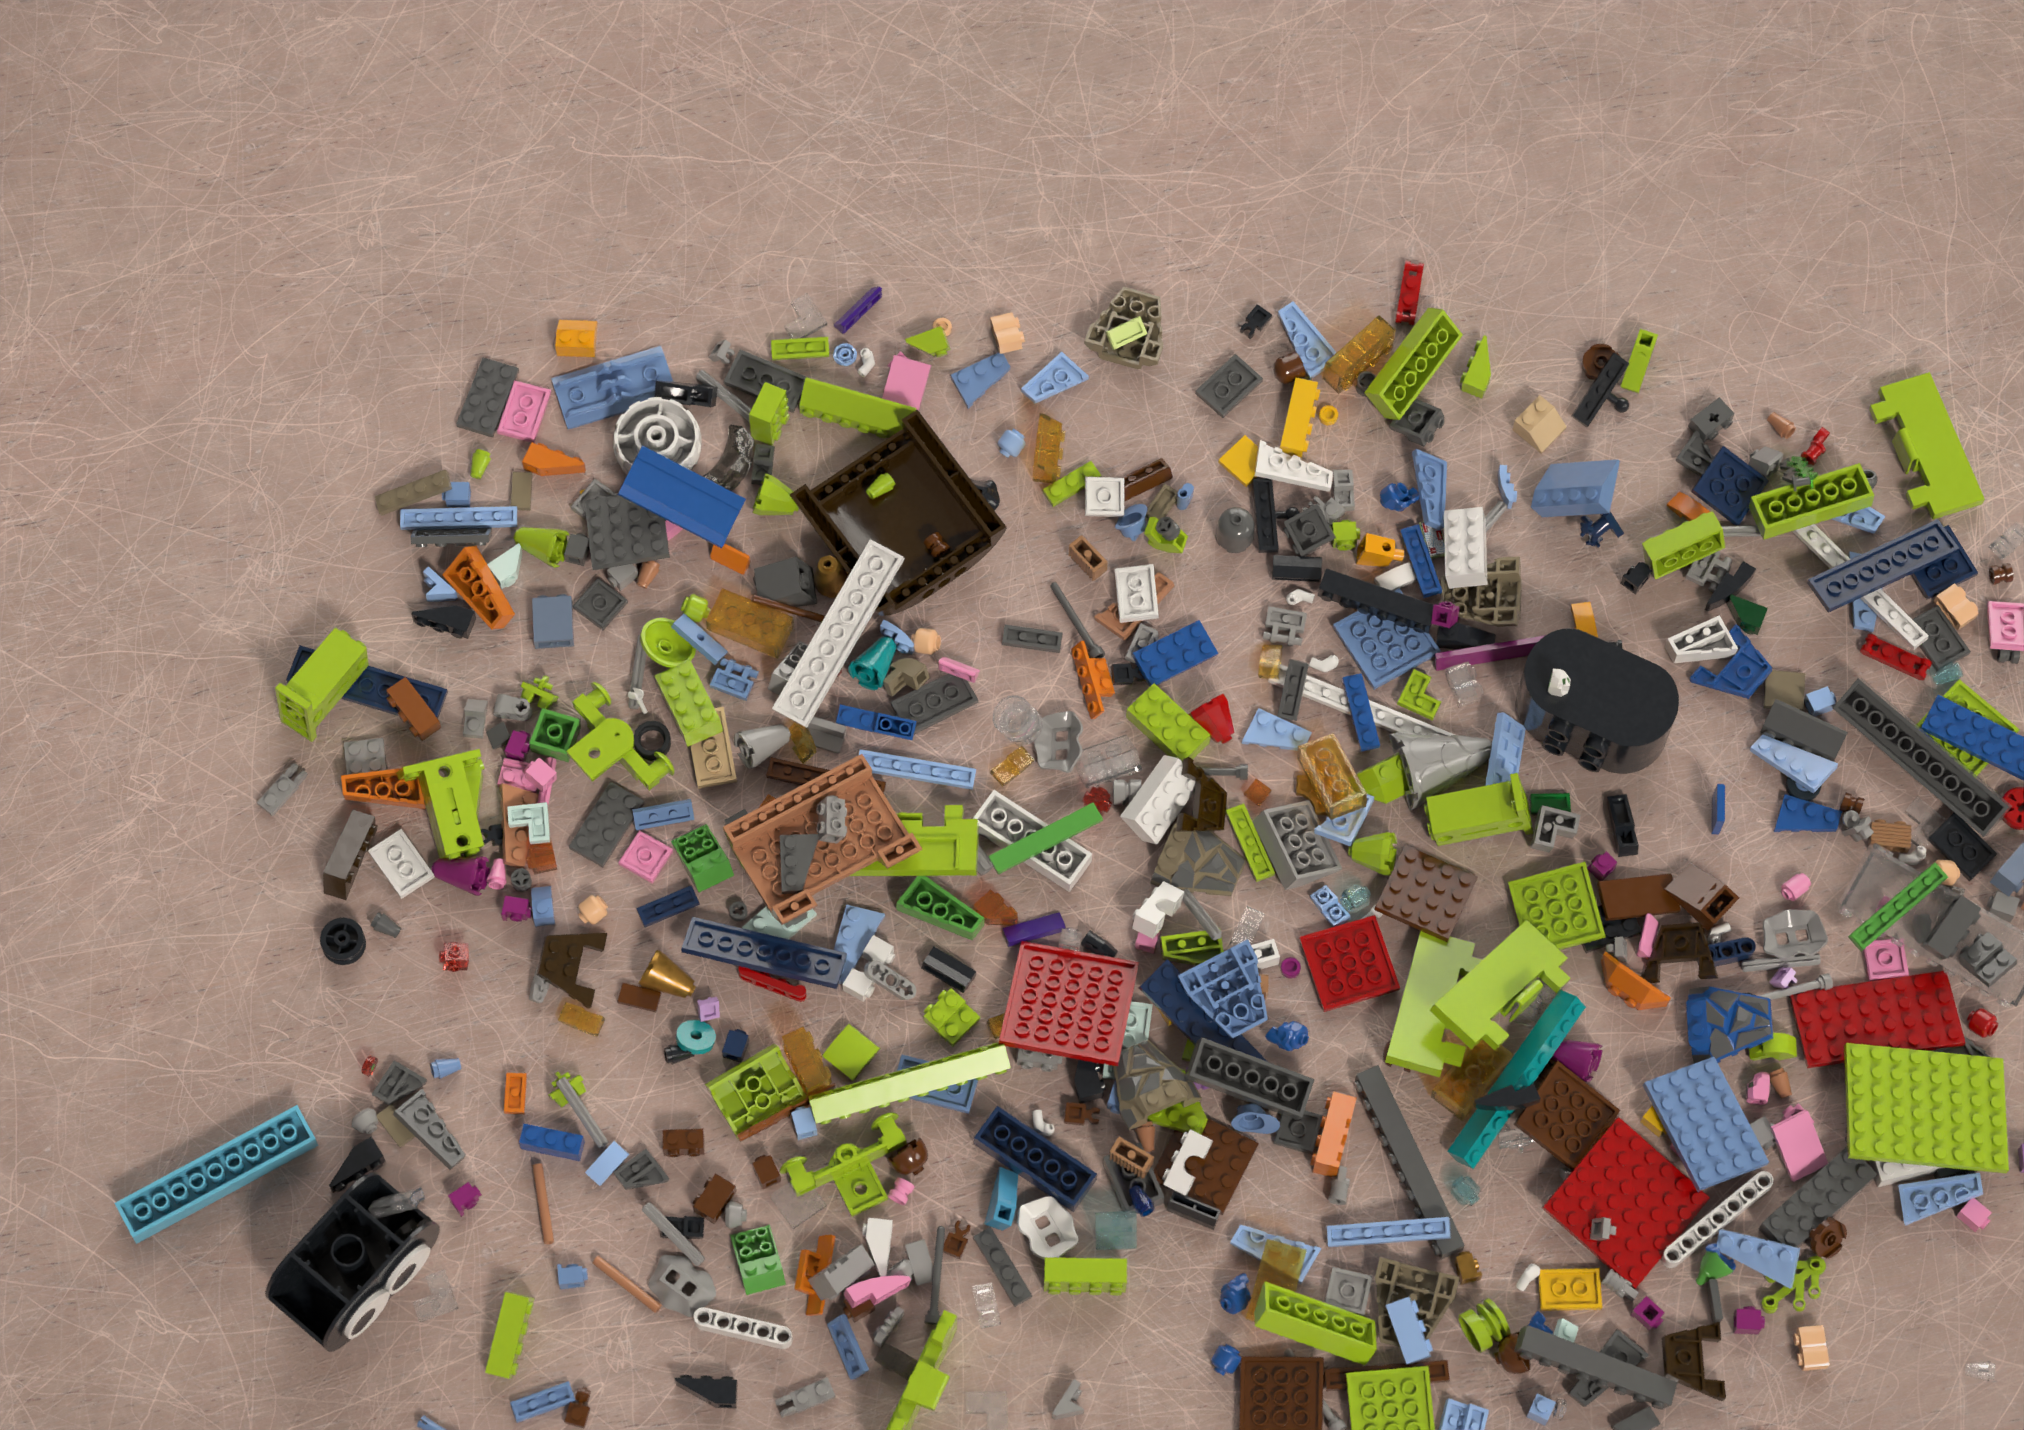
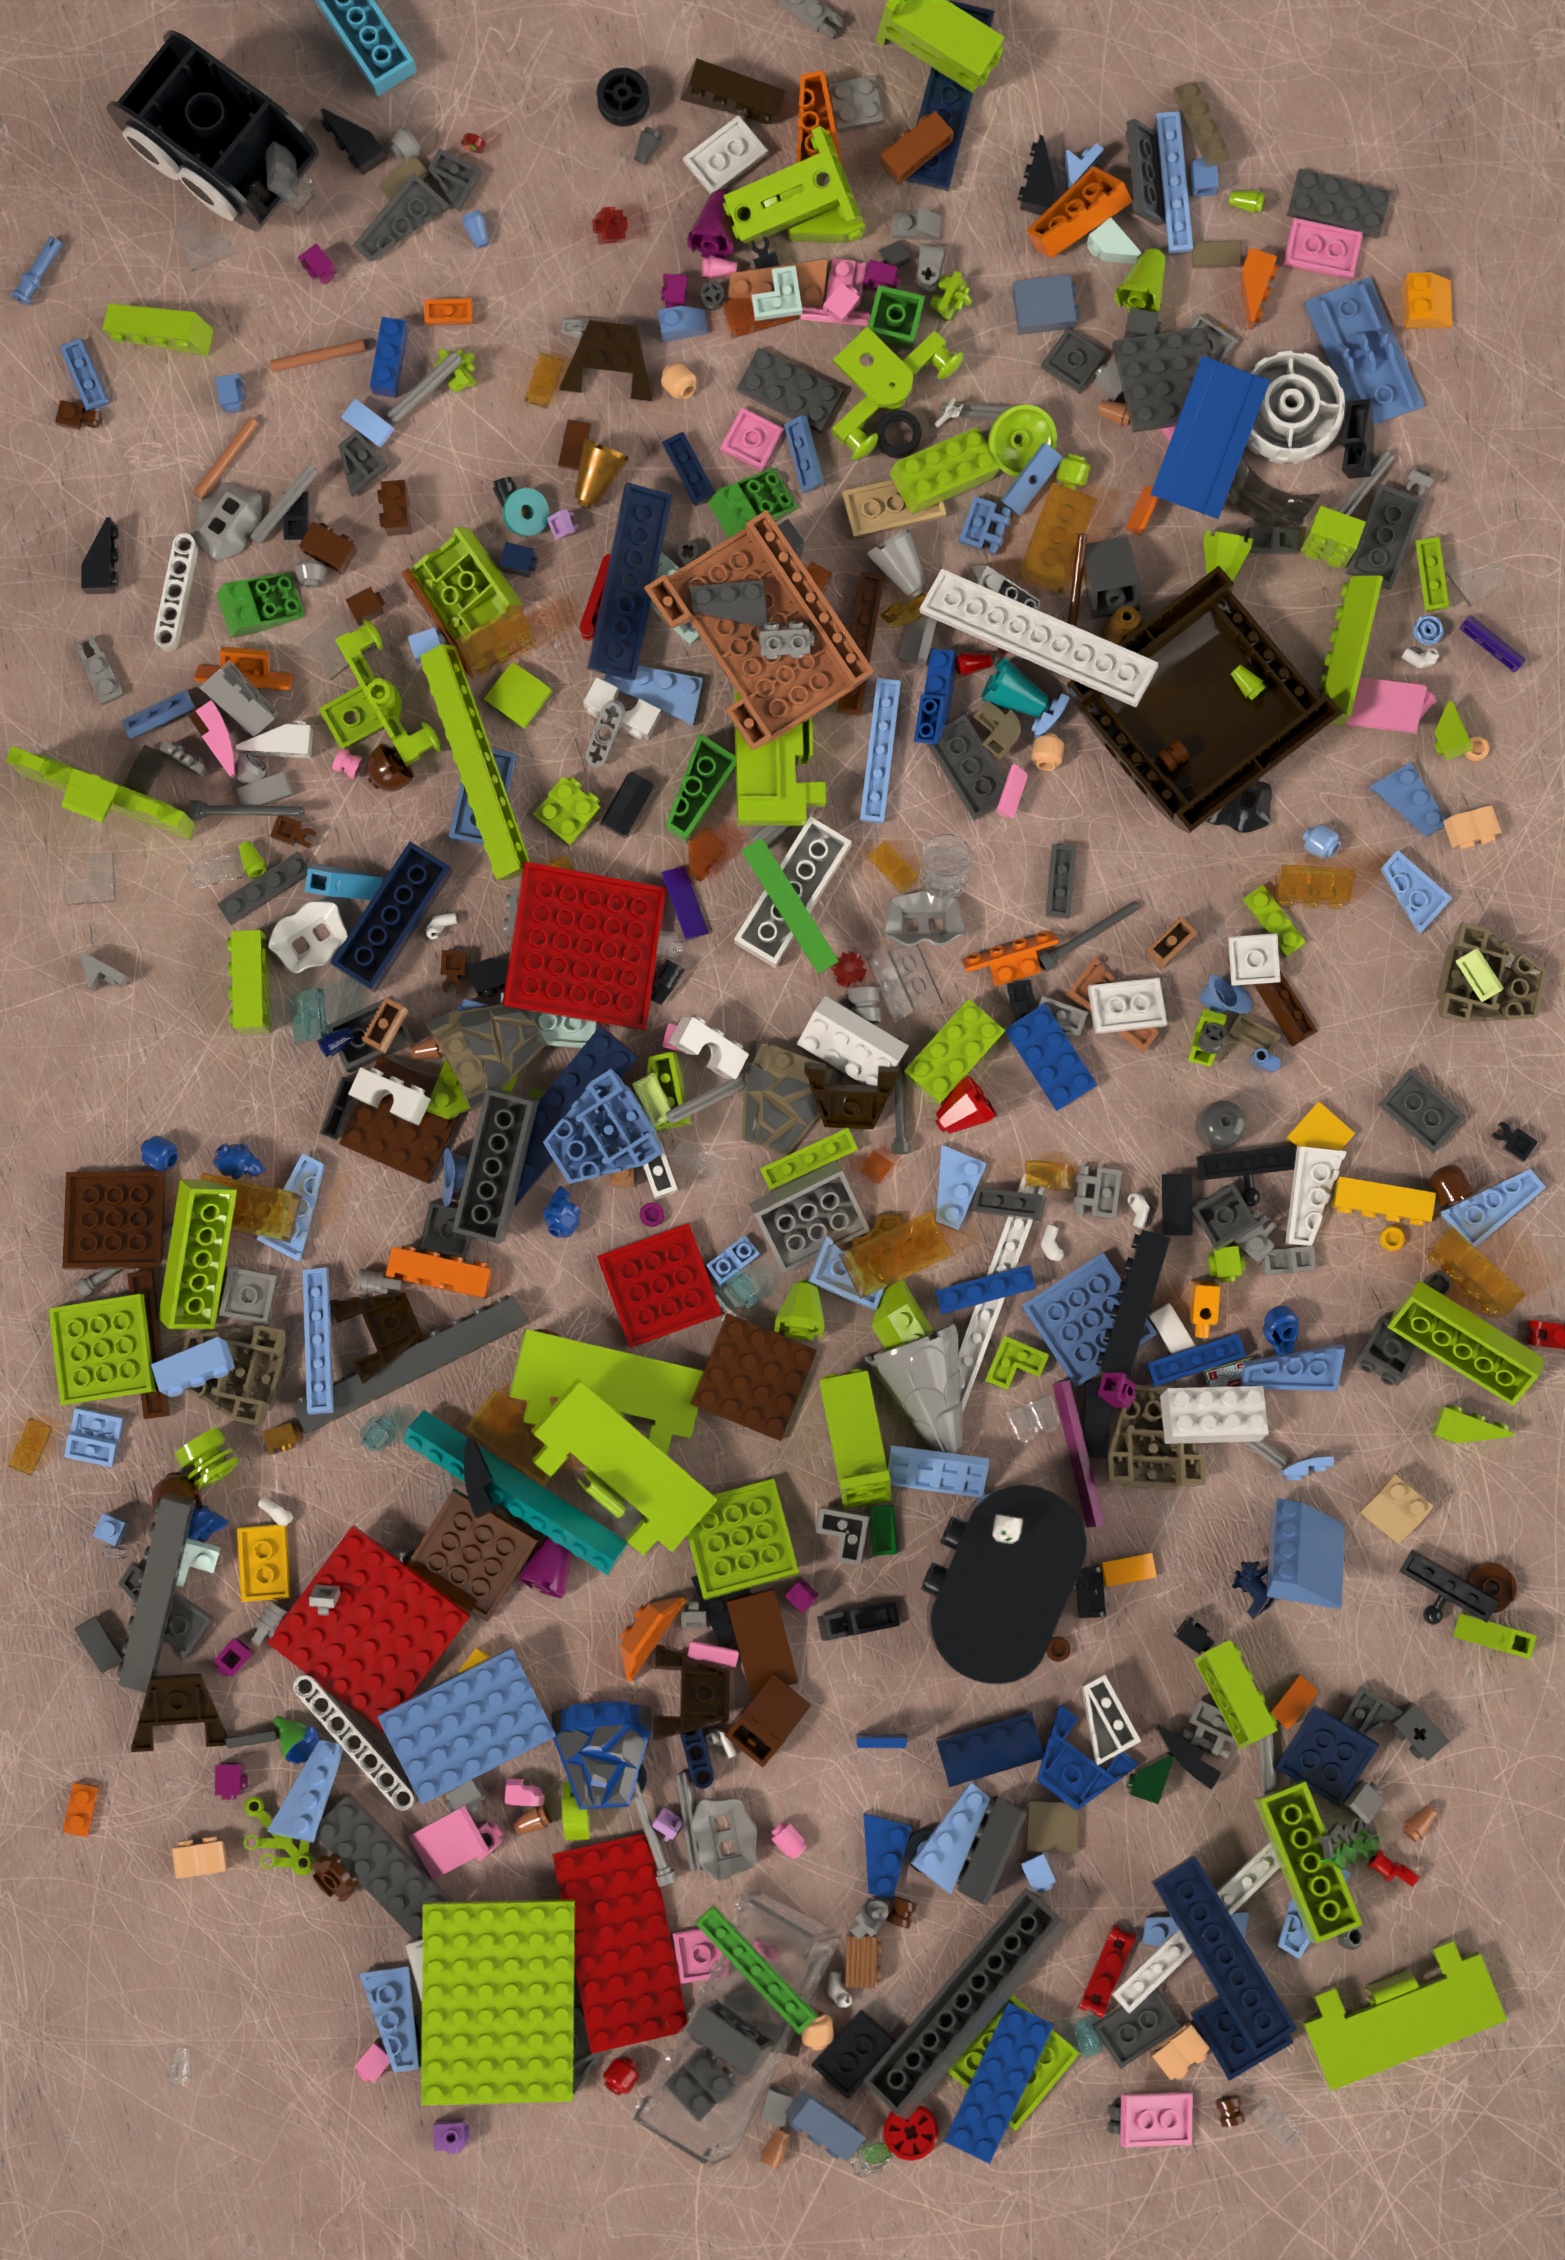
camera: 90 degrees right, 15 degrees up
(848, 694) = (972, 662): none -> red cone
(979, 1274) = (251, 860): none -> lime cone
(1199, 953) = (652, 1099): none -> yellowish green tile
(1376, 1175) = (389, 1324): none -> dark brown wing
(1722, 732) = (989, 1748): none -> dark blue slope

